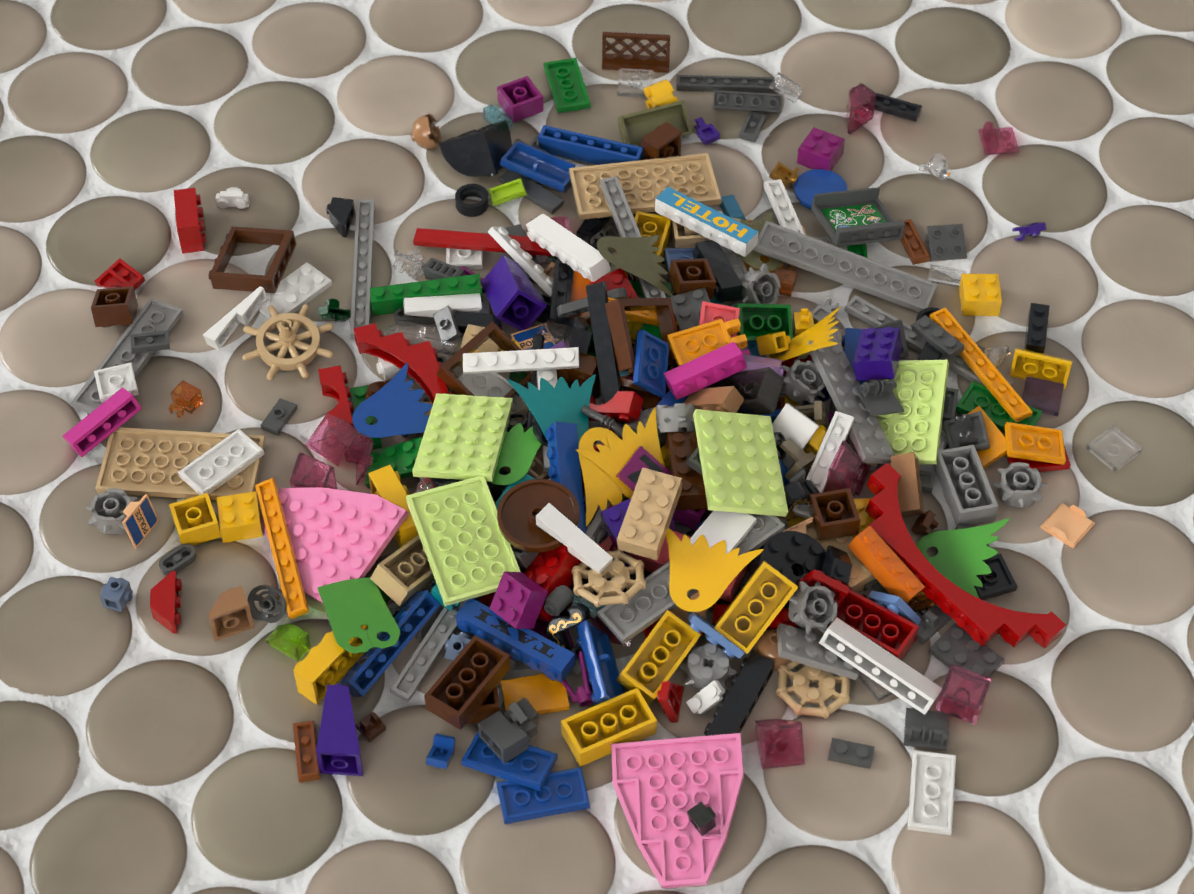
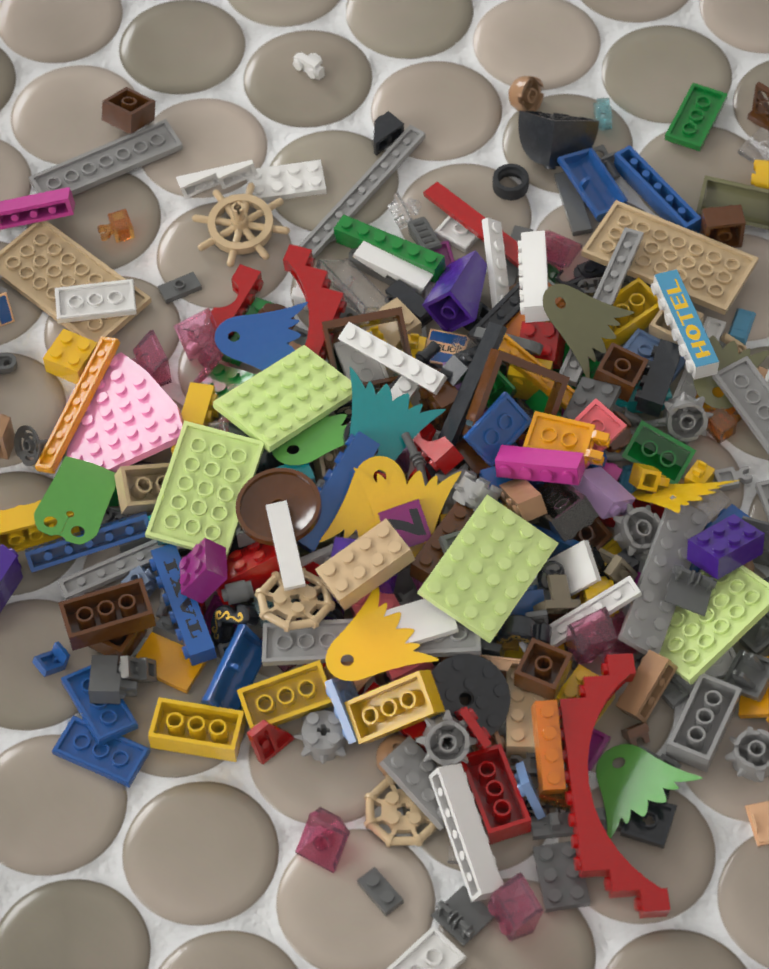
camera: 40 degrees right, 5 degrees up
(113, 379) = (78, 177): white tile -> none
(120, 275) = (160, 86): red wing -> none
(150, 341) = (129, 159): dark grey plate -> none
(189, 220) = (252, 65): red brick -> none
(195, 520) = (32, 337): yellow brick -> none
(250, 282) = (287, 149): reddish brown window -> none
(290, 640) = (20, 488): clear neon green slope -> none
(332, 311) = (300, 217): dark green piece -> none
(371, 726) = (21, 602): reddish brown tile -> none
(446, 324) = (379, 287): plate -> none
(507, 192) = (548, 191): lime tile -> none
(520, 99) = (637, 107): magenta brick -> none
(583, 692) = (201, 687): magenta plant -> none
(661, 783) = (194, 832): bright pink piece -> none
(702, 818) = (191, 857): pearl dark grey plate -> none
(706, 698) = (298, 759): white piece -> none
(742, 697) = (315, 786): black brick -> none
(837, 564) = (503, 717): black slope -> none

